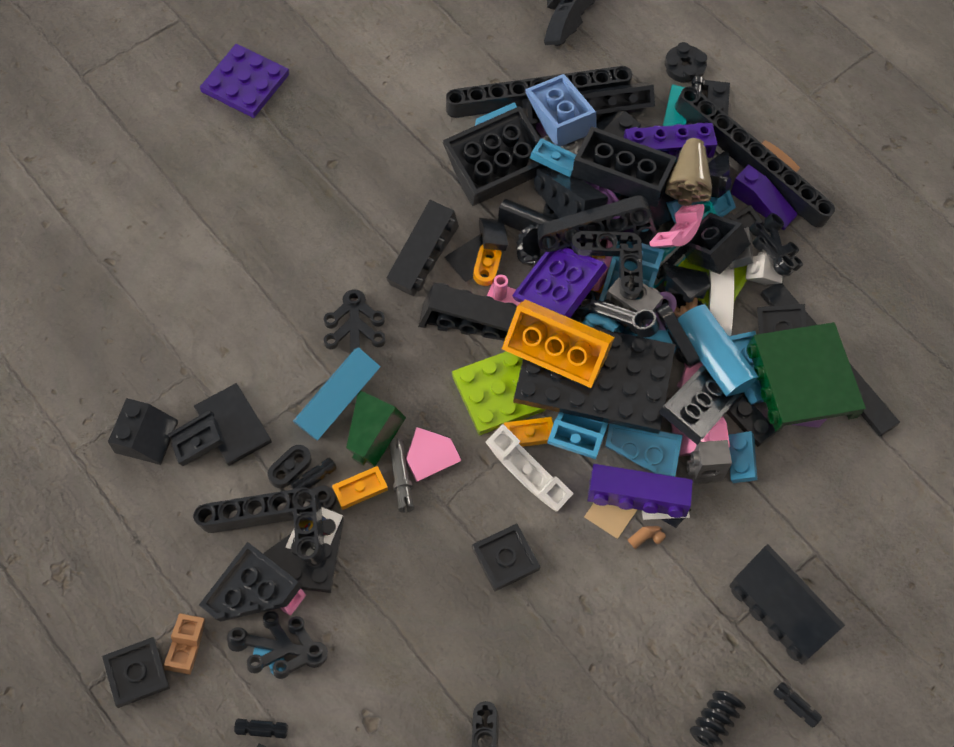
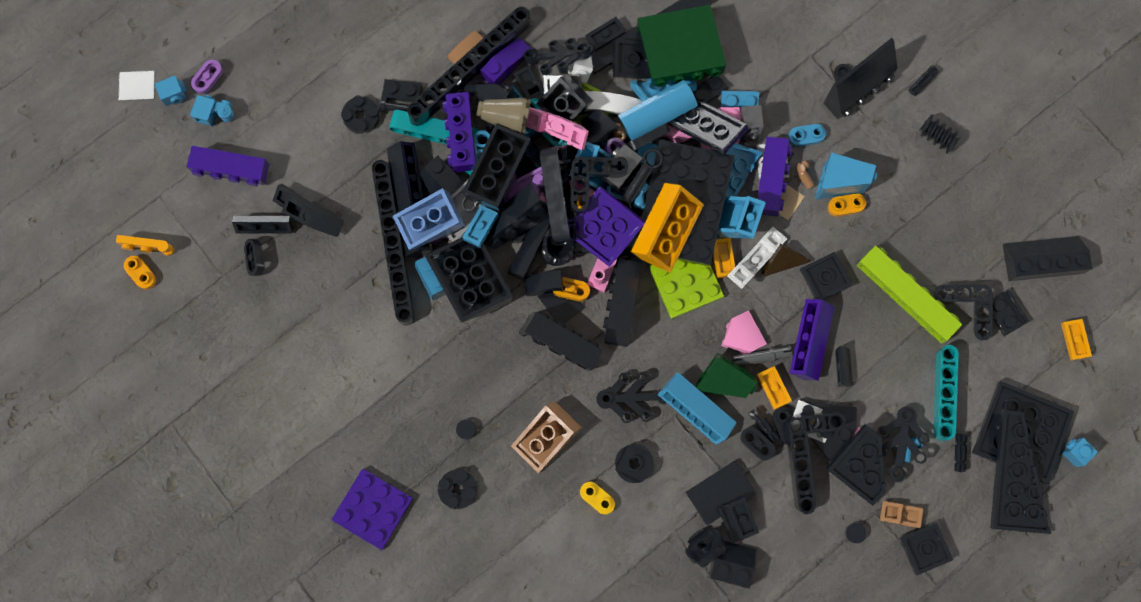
camera: 85 degrees left, 15 degrees up
(165, 398) = (714, 548): none -> black plate
(166, 583) = (855, 533): none -> black tile
(240, 291) = (597, 497): none -> yellow plate
(259, 144) = (467, 494): none -> black plate
(278, 340) = (623, 466): none -> black plate
(314, 238) = (546, 436): none -> medium nougat slope
(325, 163) = (465, 429): none -> black tile
(333, 700) = (939, 400): none -> teal beam
(384, 576) = (843, 367): none -> black slope
(420, 532) = (812, 339): none -> dark purple brick
(482, 665) = (909, 295): none -> lime brick
(529, 506) = (784, 259): none -> dark brown tile
(607, 589) = (847, 205): none -> light orange plate
(642, 577) = (844, 177): none -> dark azure slope
(702, 540) = (807, 135): none -> dark azure plate
(815, 302) = (605, 33): none -> black plate

